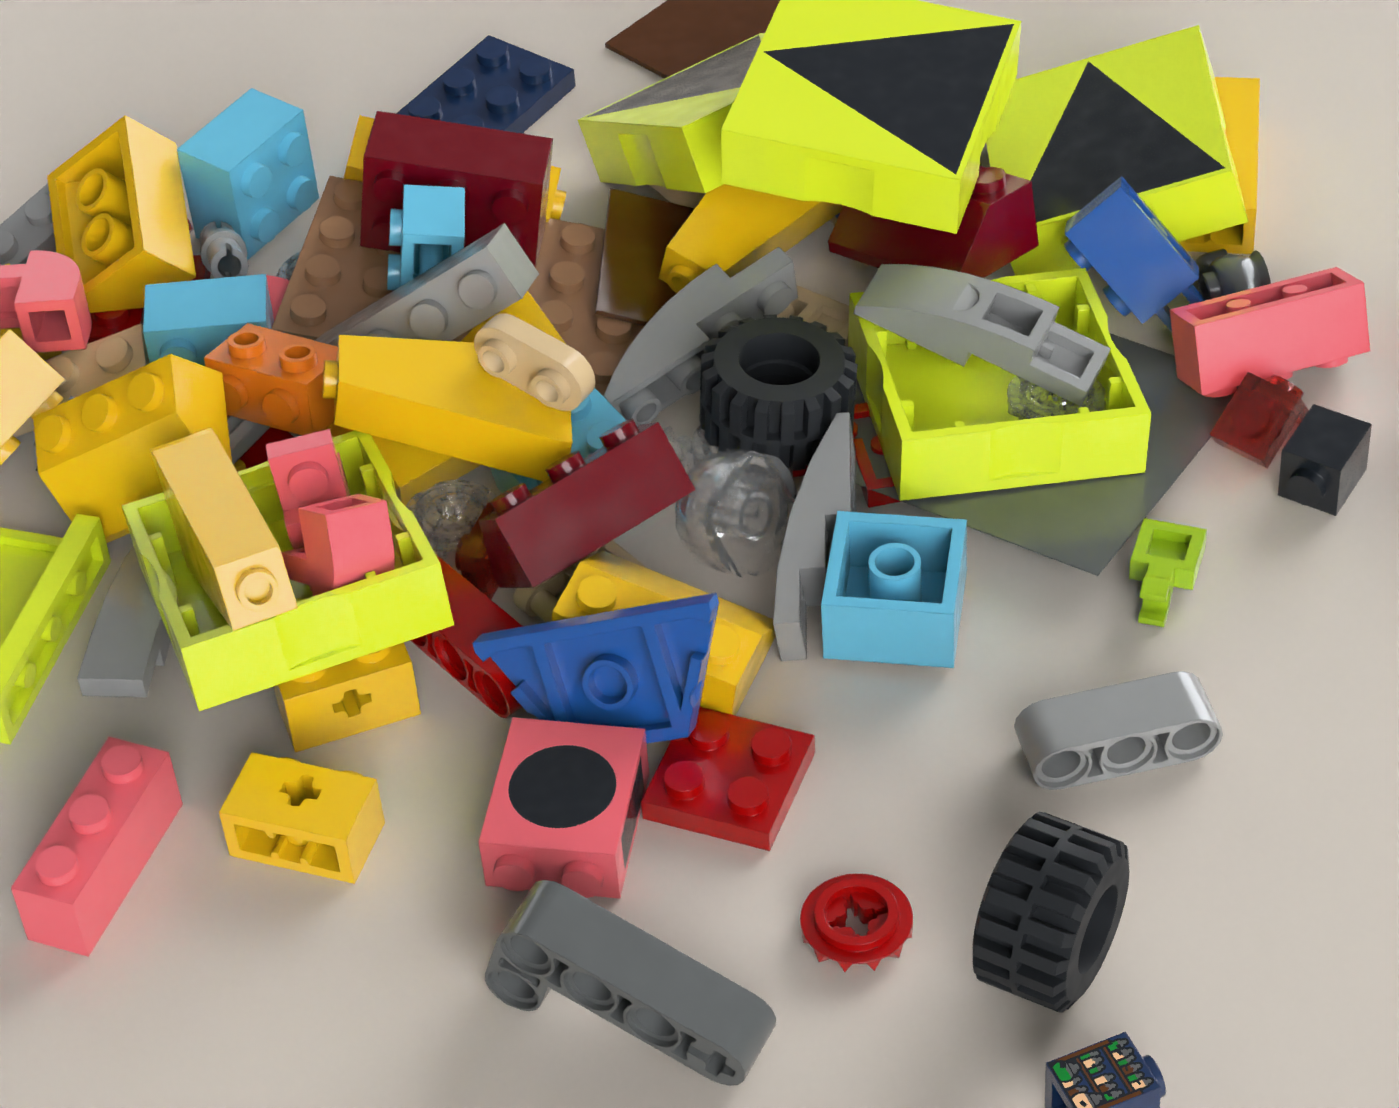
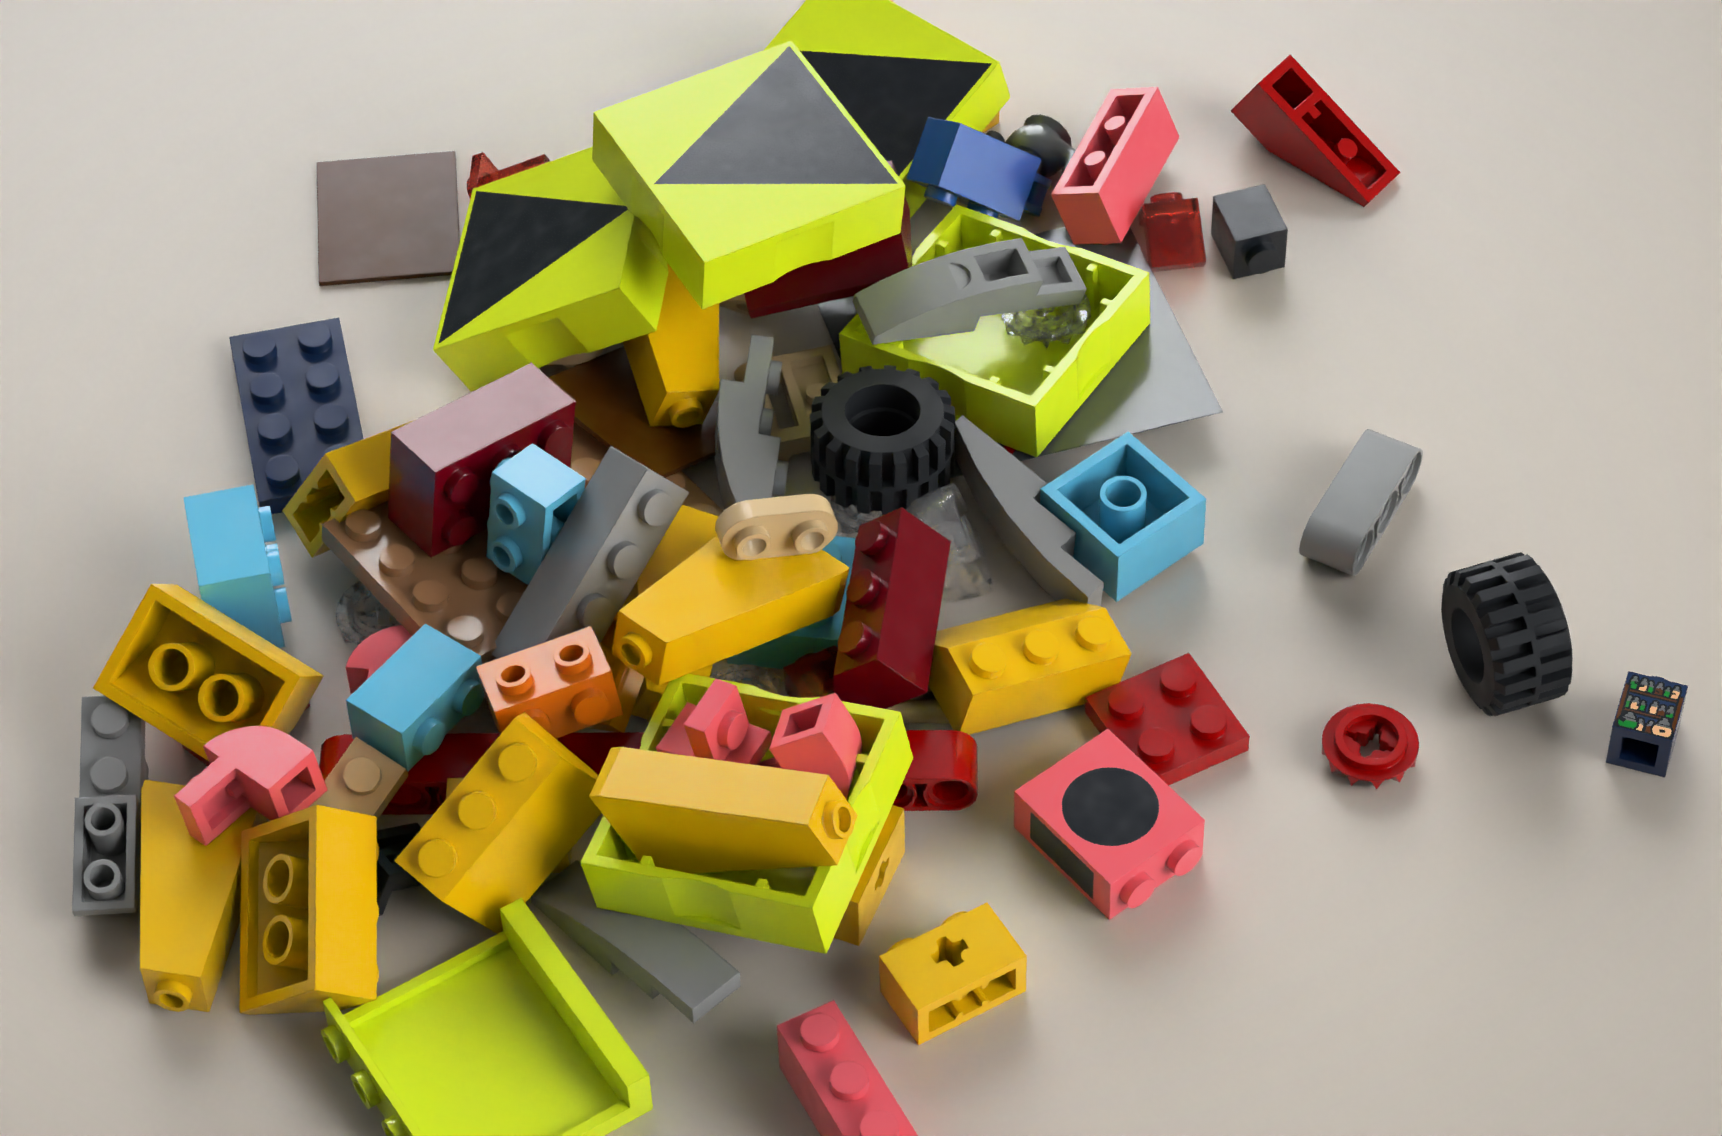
camera: 50 degrees left, 5 degrees up
(223, 251) = (314, 643): light grey pin -> none
(612, 666) = (1049, 703): blue wing -> none
(629, 980) = (1305, 888): dark grey beam -> none
(1165, 558) = (1244, 368): lime plate -> none

